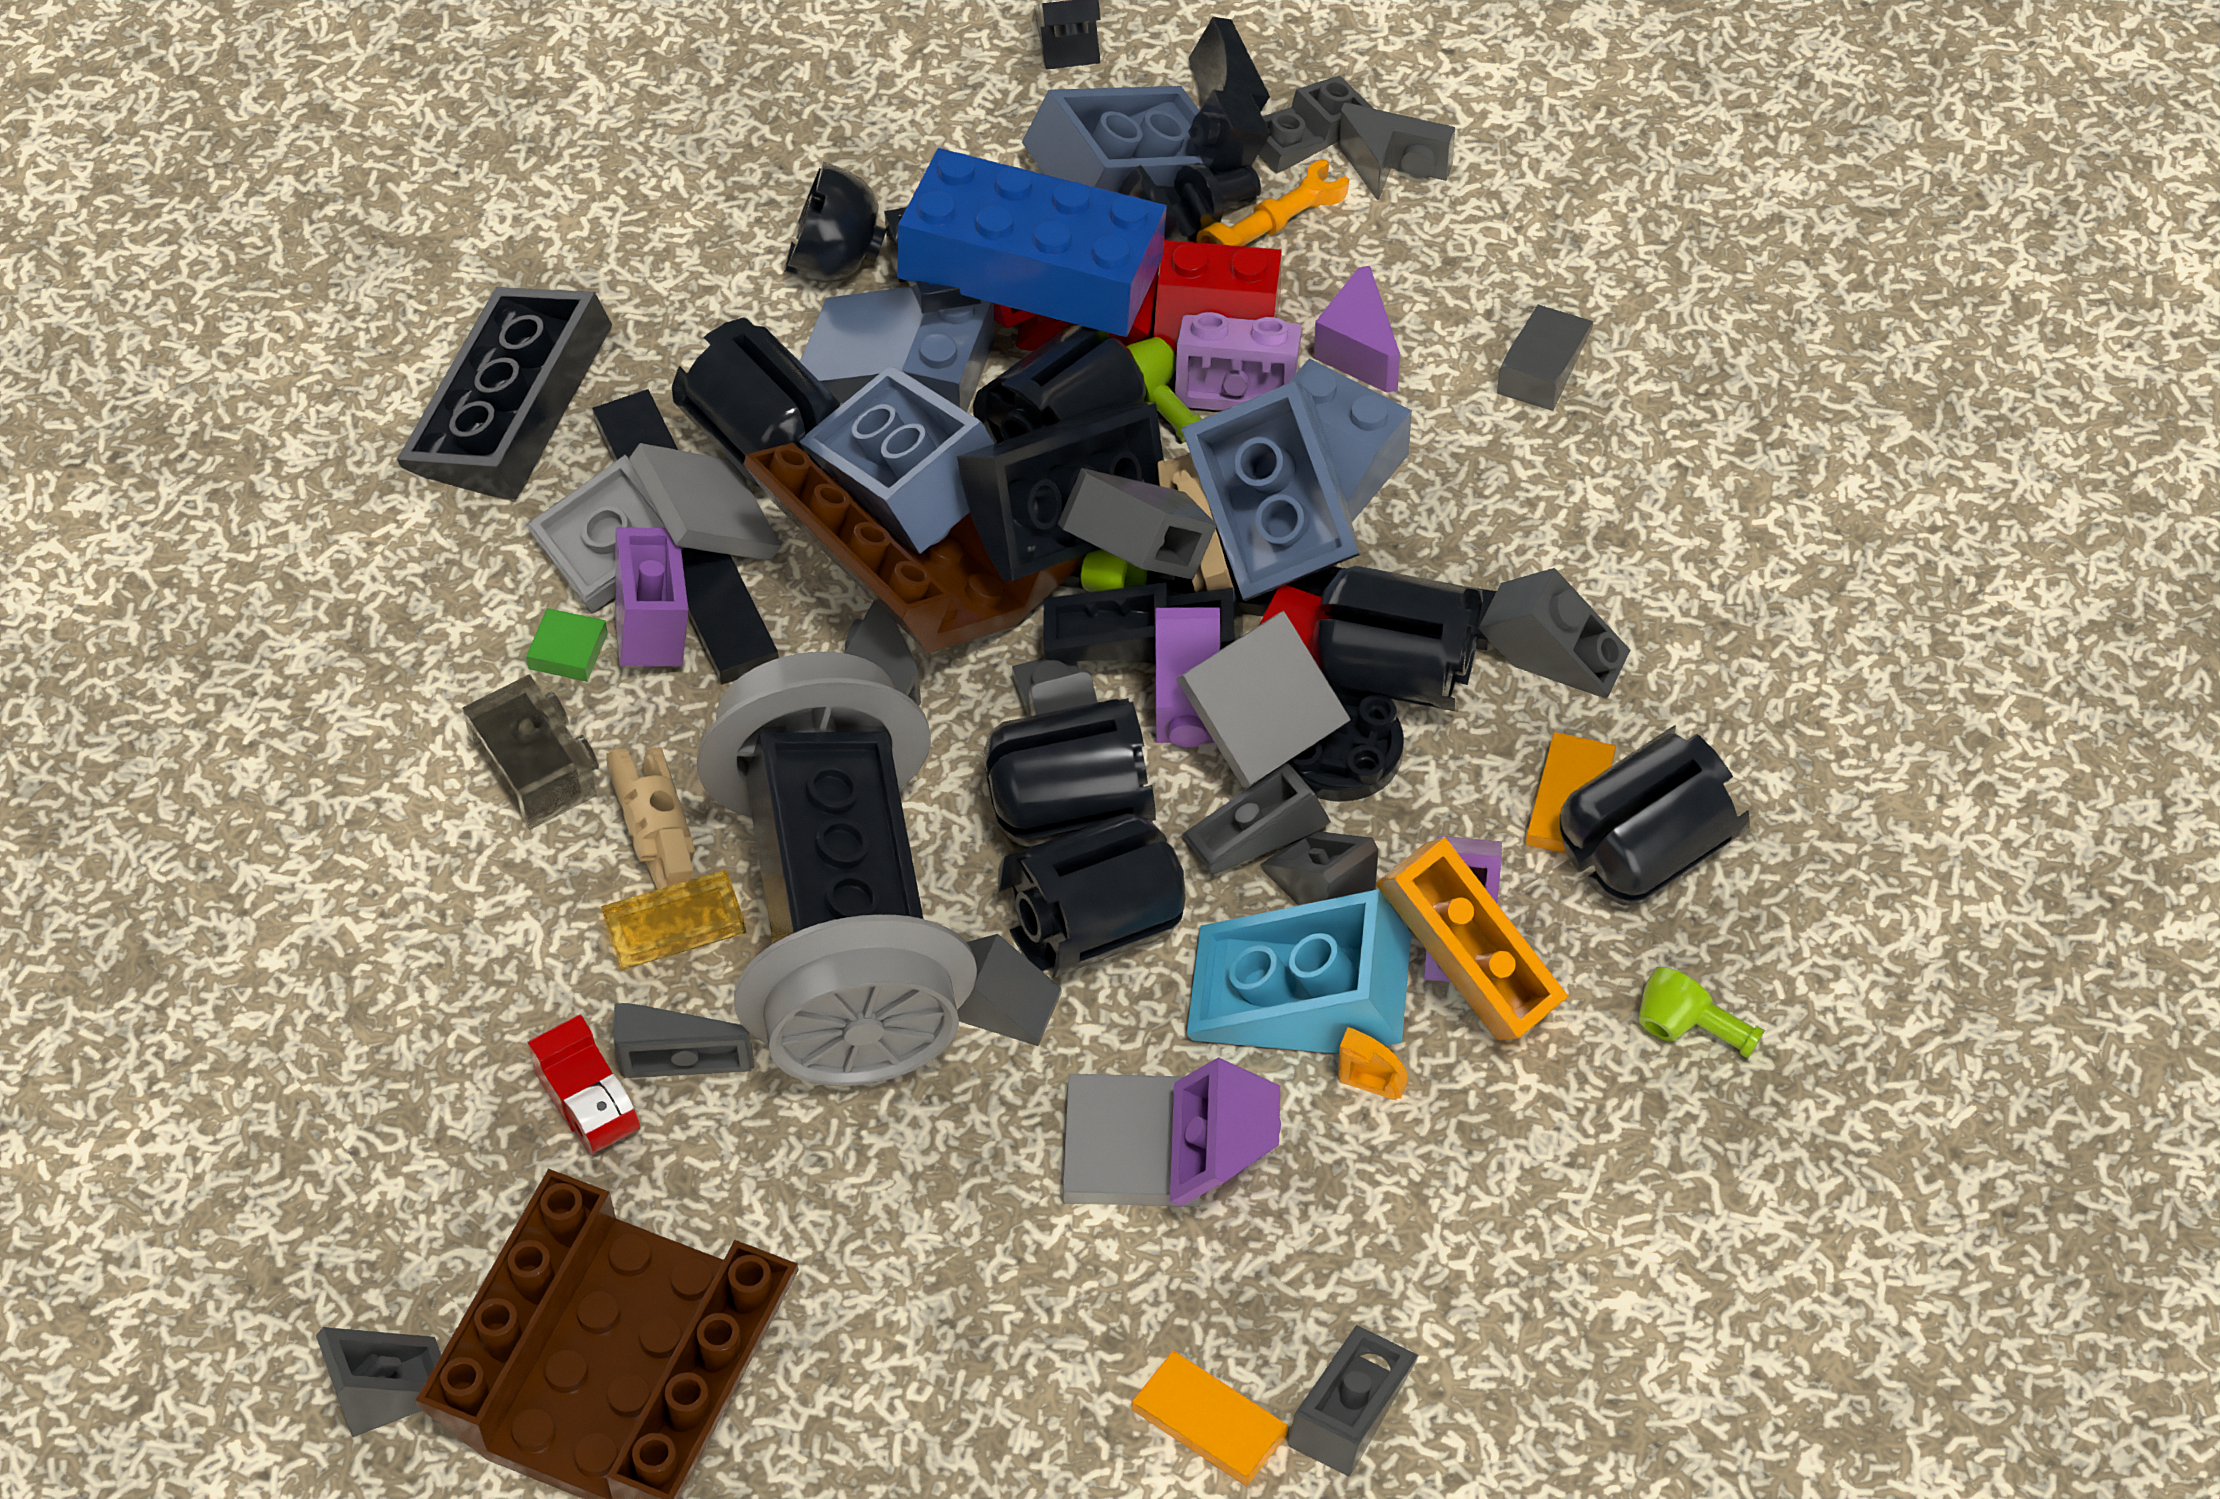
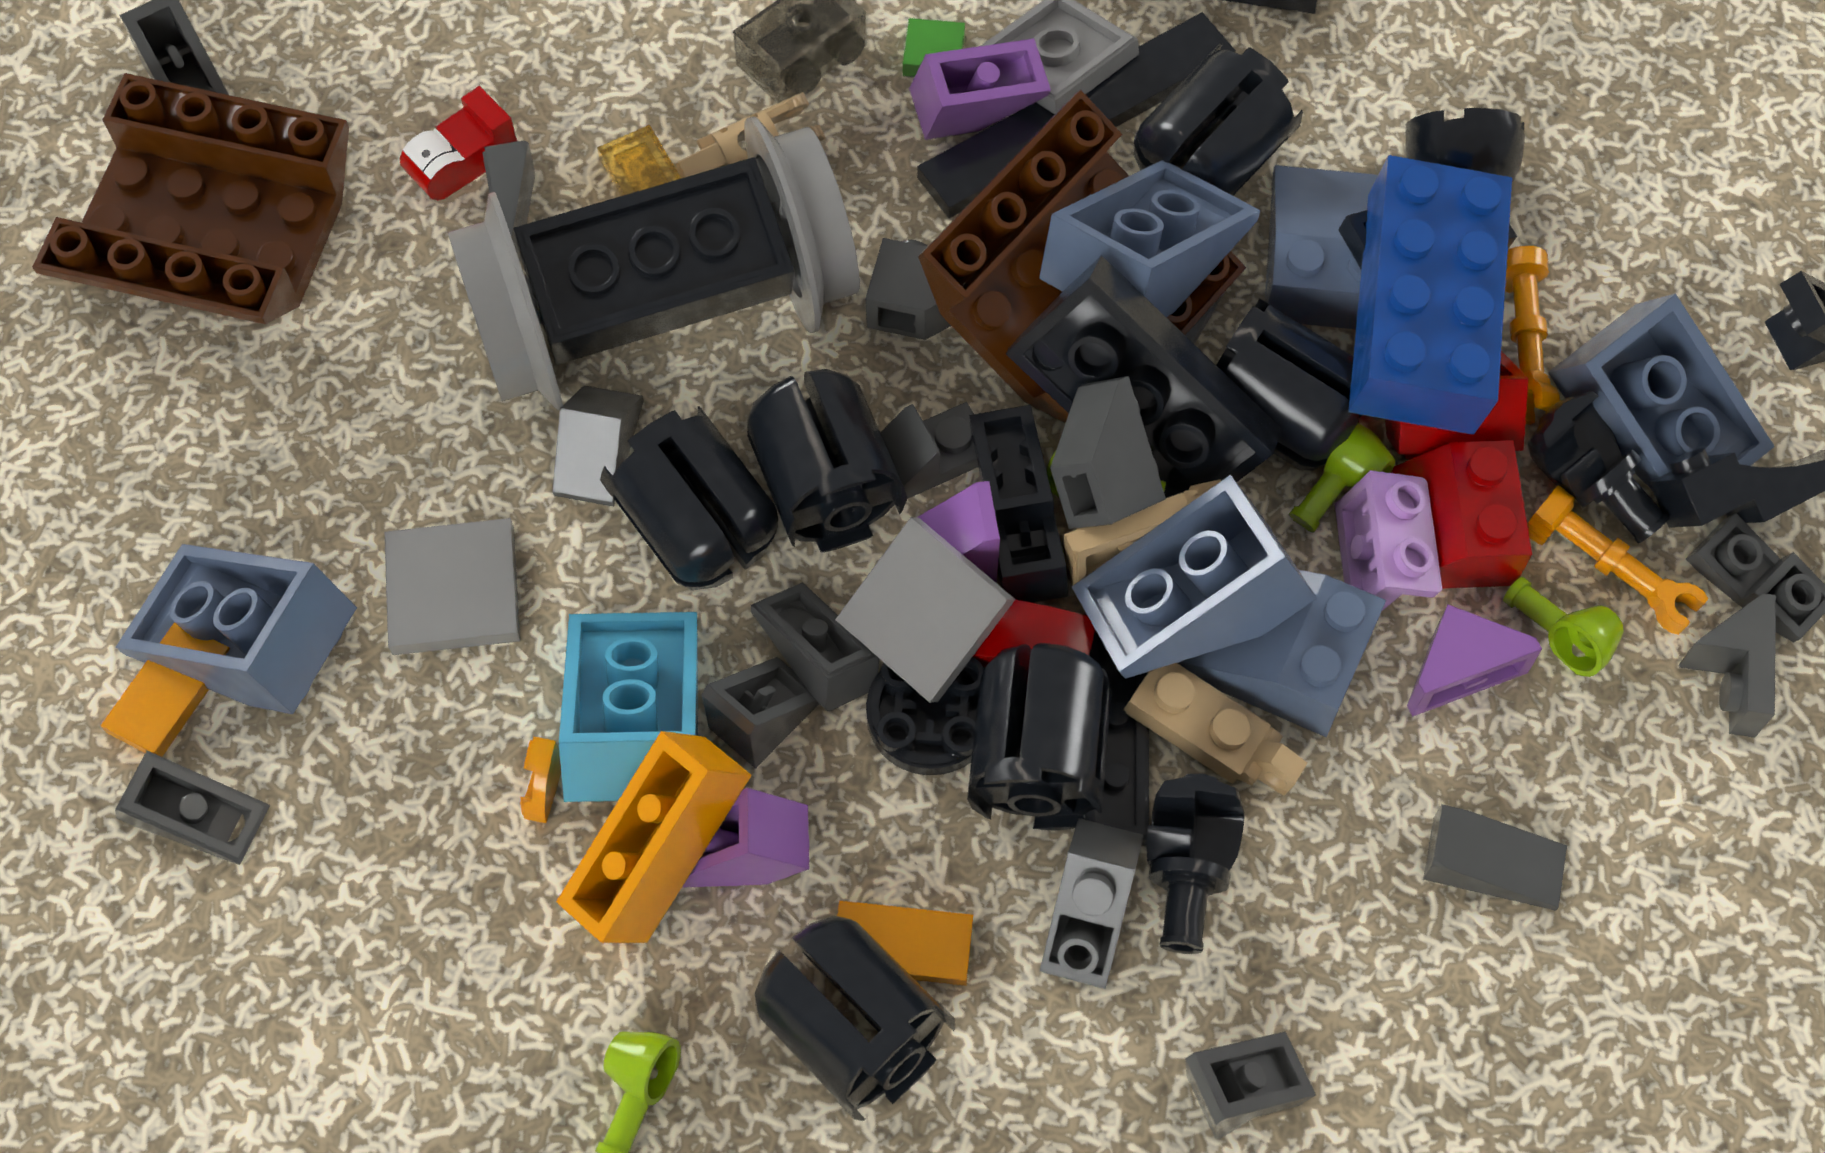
camera: 80 degrees right, 10 degrees up
(704, 502) = (1109, 78): light grey tile -> none
(1143, 1303) = (268, 610): none -> sand blue slope
(1220, 1127) = (436, 649): medium lavender slope -> none
(1342, 243) = (1591, 630): none -> lime bar
(1405, 517) = (1214, 729): none -> tan hinge
(1498, 551) = (1191, 851): none -> black piece
(1741, 554) = (1247, 1081): none -> dark grey slope

